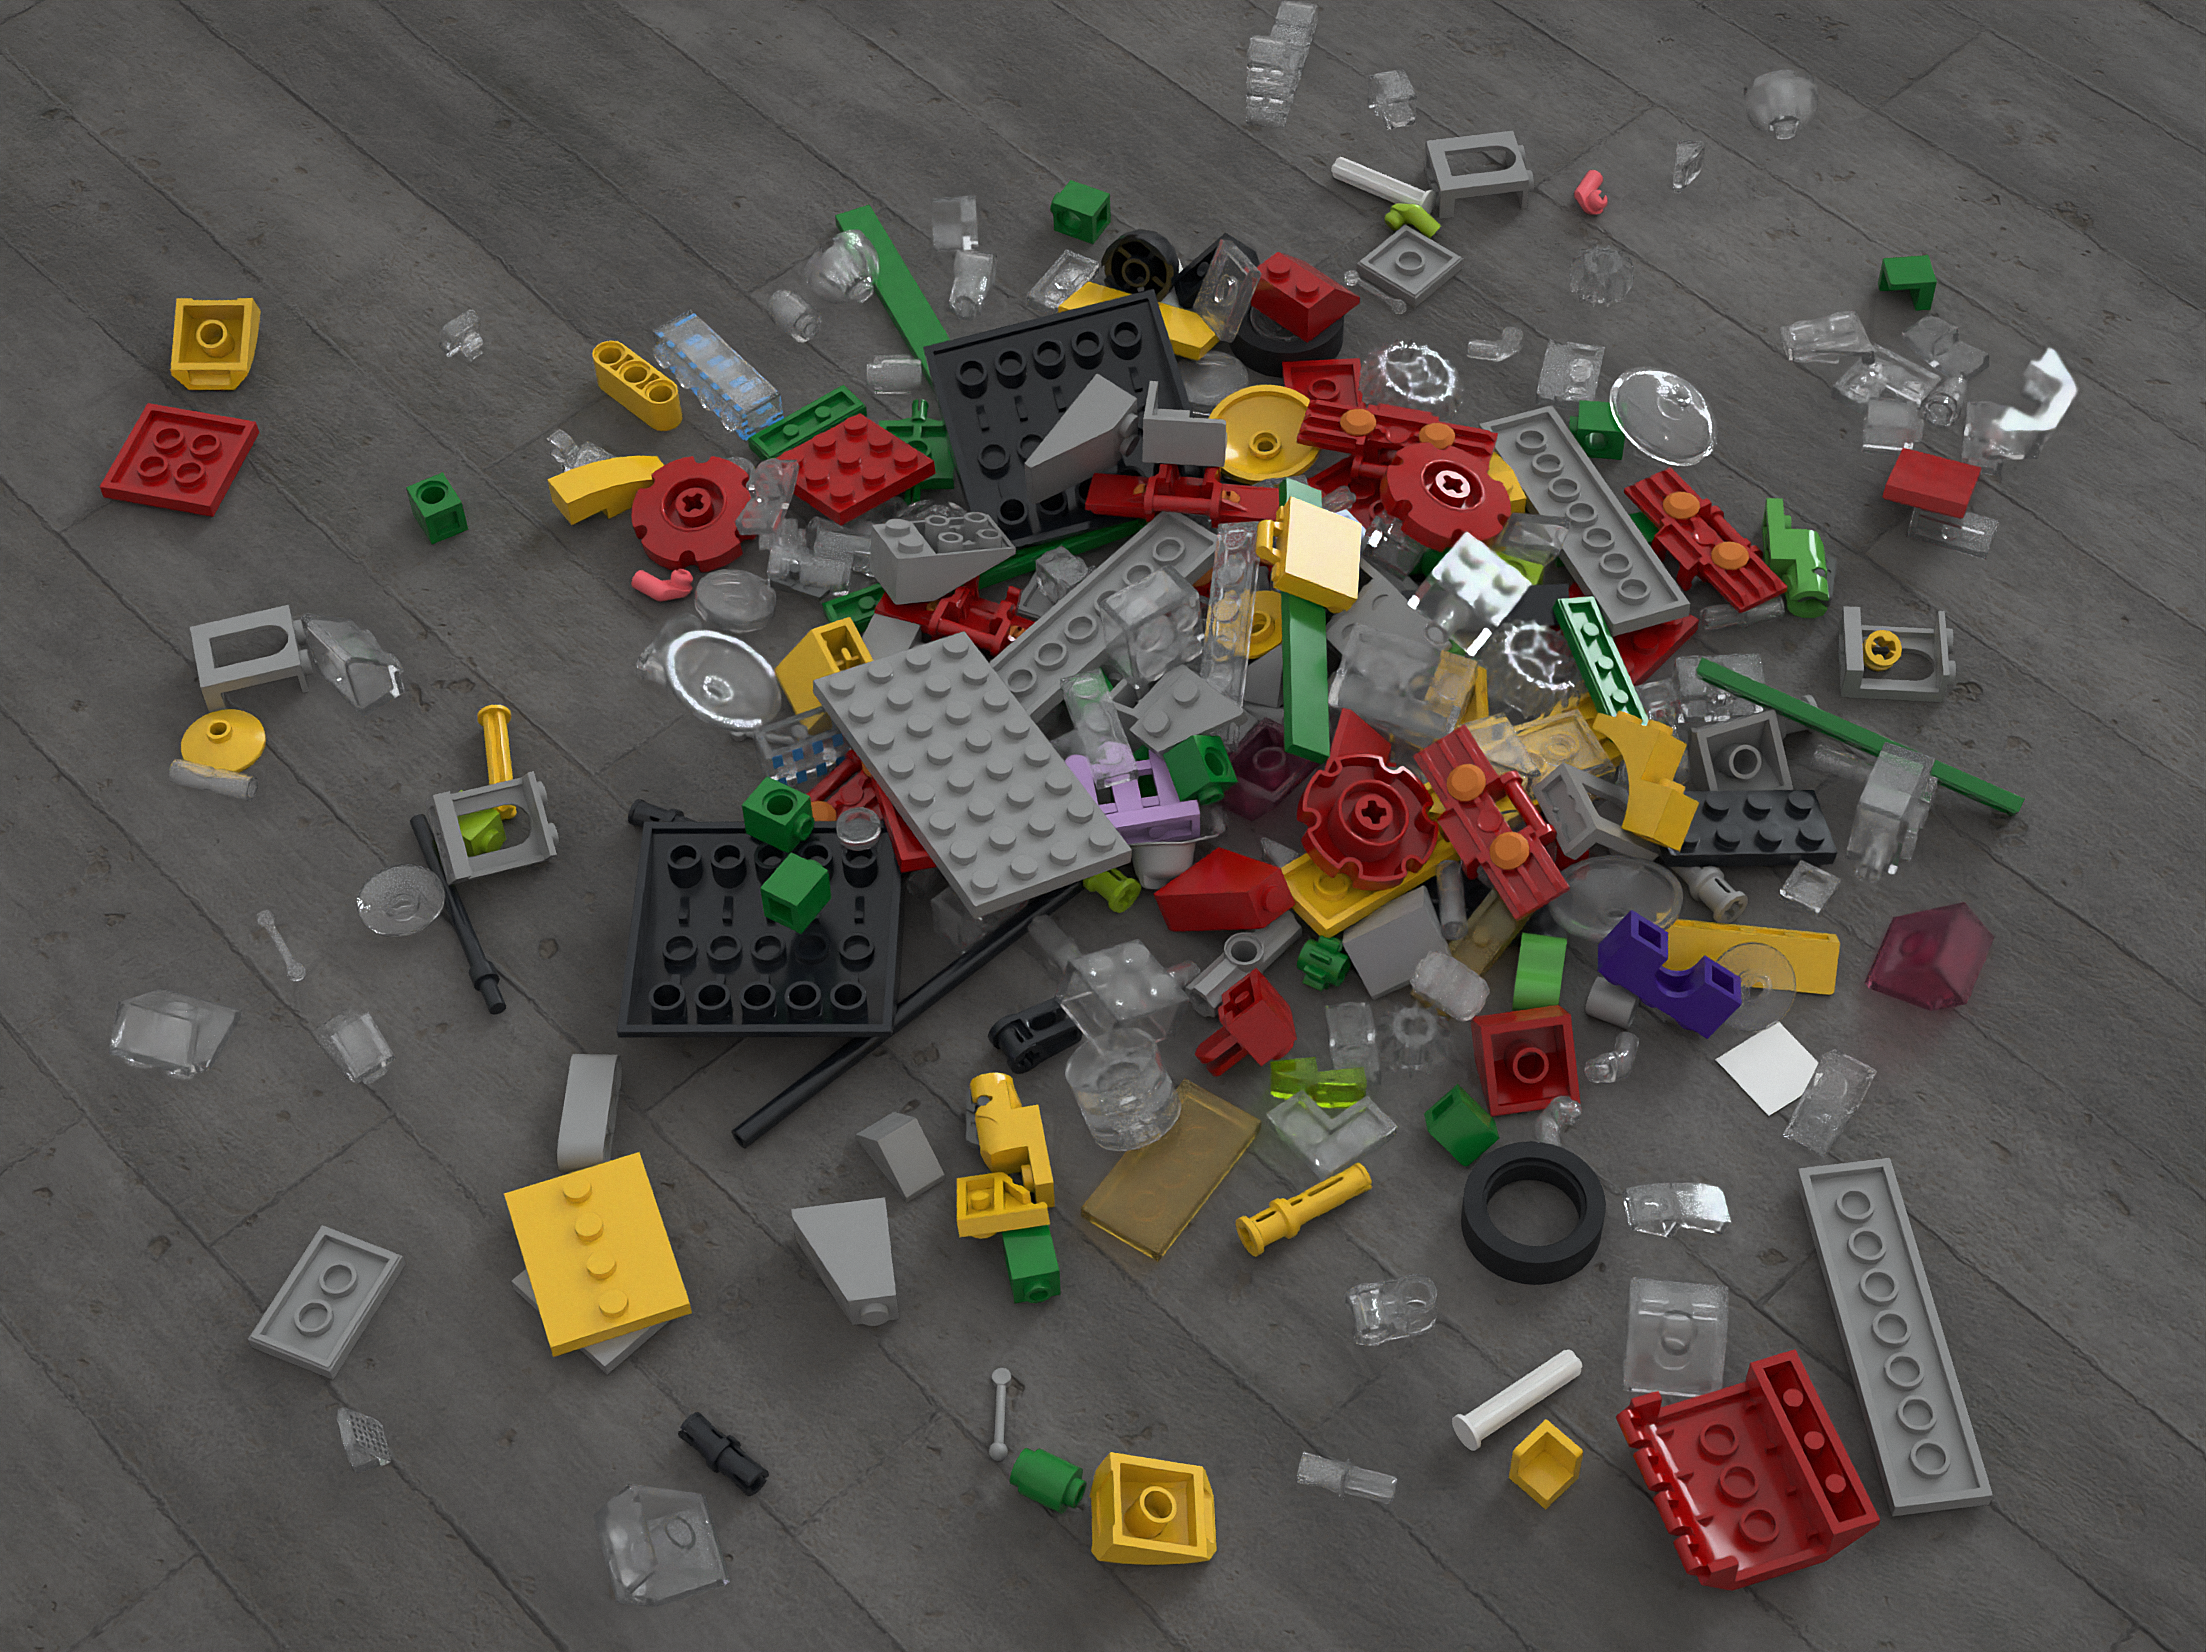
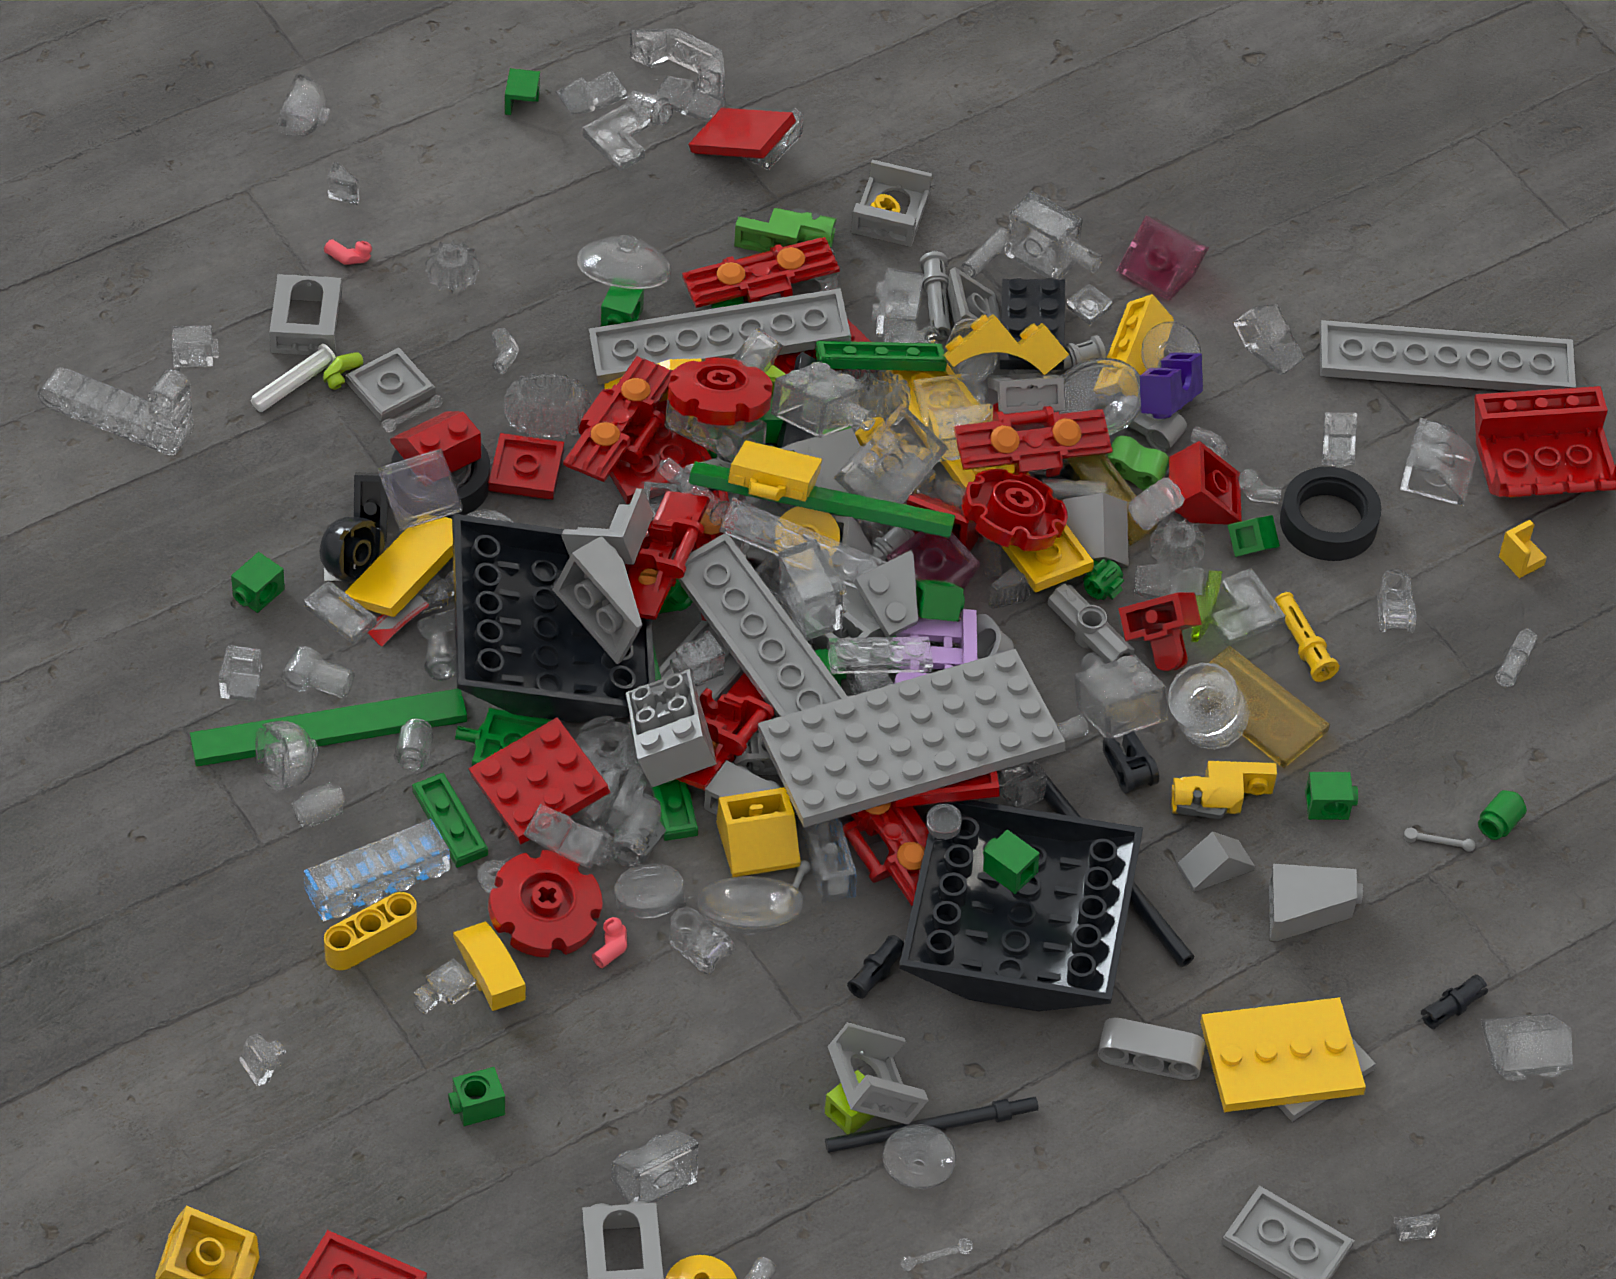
camera: 85 degrees left, 0 degrees up
(354, 1046) = (1057, 1201): clear slope -> none
(494, 722) = (782, 1079): yellow axle -> none
(778, 815) = (925, 876): green brick -> none
(995, 1205) = (1285, 804): yellow wing -> none
(1151, 1512) = (1537, 764): yellow slope -> none
(1224, 894) = (1040, 615): red slope -> none
(1264, 420) = (568, 493): yellow dish -> none
(1516, 1399) = (1470, 557): white axle -> none
(1569, 374) = (554, 312): clear plate -> none
(1770, 1068) = (1228, 367): white sticker -> none
(1827, 339) = (569, 151): clear wing -> none
(1850, 733) = (973, 239): green tile -> none
(1890, 426) = (669, 144): clear brick -> none

